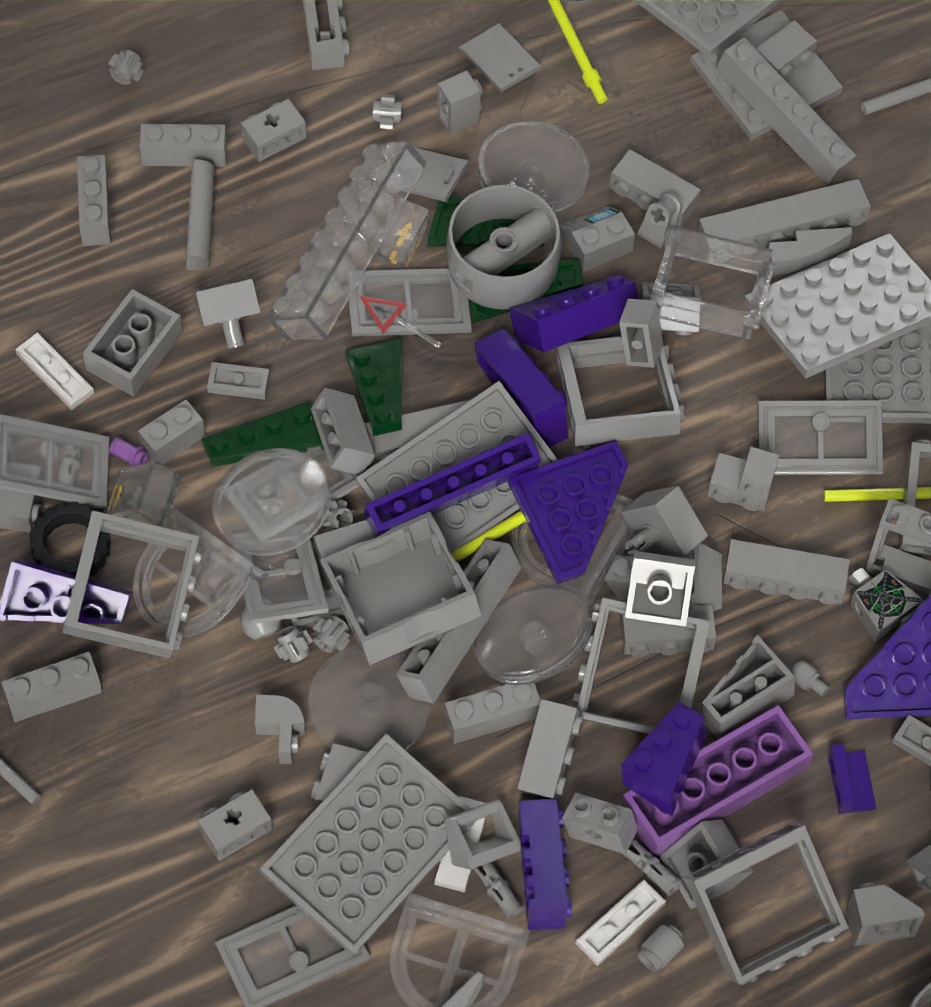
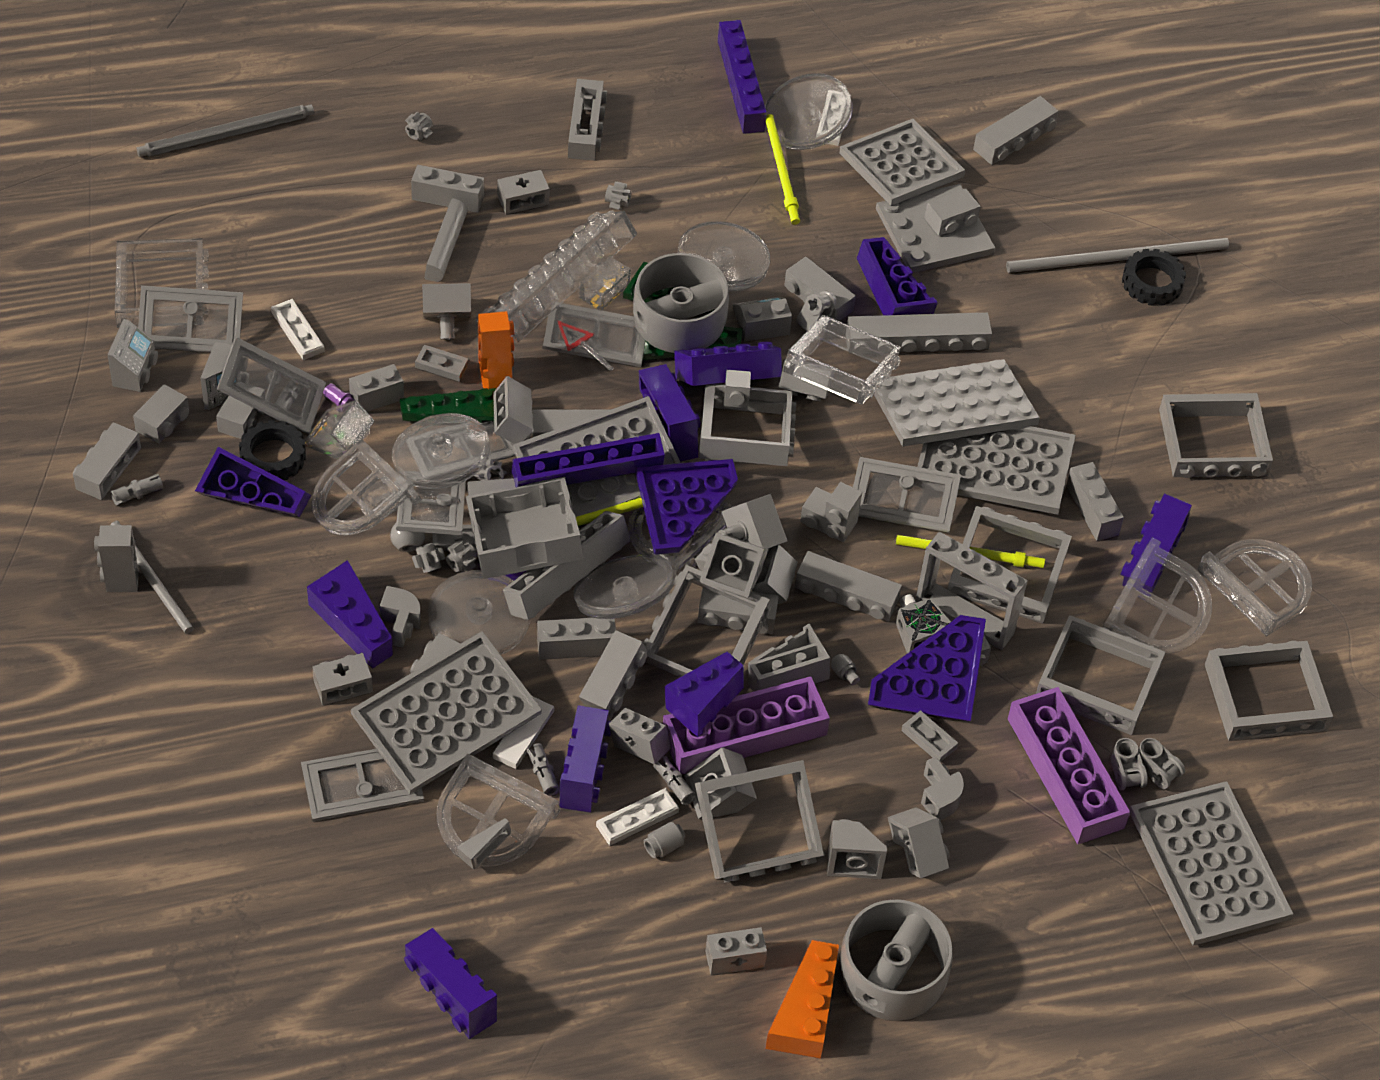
camera: 10 degrees right, 10 degrees down
(51, 687) = (225, 549): light grey brick -> none
(93, 200) = (364, 213): light grey brick -> none
(132, 342) = (364, 318): light grey brick -> none
(146, 533) = (326, 444): light grey window -> none
(220, 736) = (350, 613): none -> dark purple wedge
(301, 357) = (495, 348): none -> orange wedge
(379, 383) = (554, 384): dark green wing -> none
(437, 173) = (644, 247): light grey container -> none
(459, 102) = (677, 197): light grey brick -> none
(500, 57) = (721, 176): light grey container -> none
(503, 844) = (517, 728): light grey tile -> none
(598, 347) = (737, 388): none -> light grey brick
(641, 333) = (773, 382): light grey brick -> none
(737, 161) = (892, 281): none -> dark purple wedge
(786, 111) = (941, 253): light grey brick -> none
(808, 249) = (932, 356): light grey slope -> none
(850, 780) = (859, 751): dark purple panel -> none

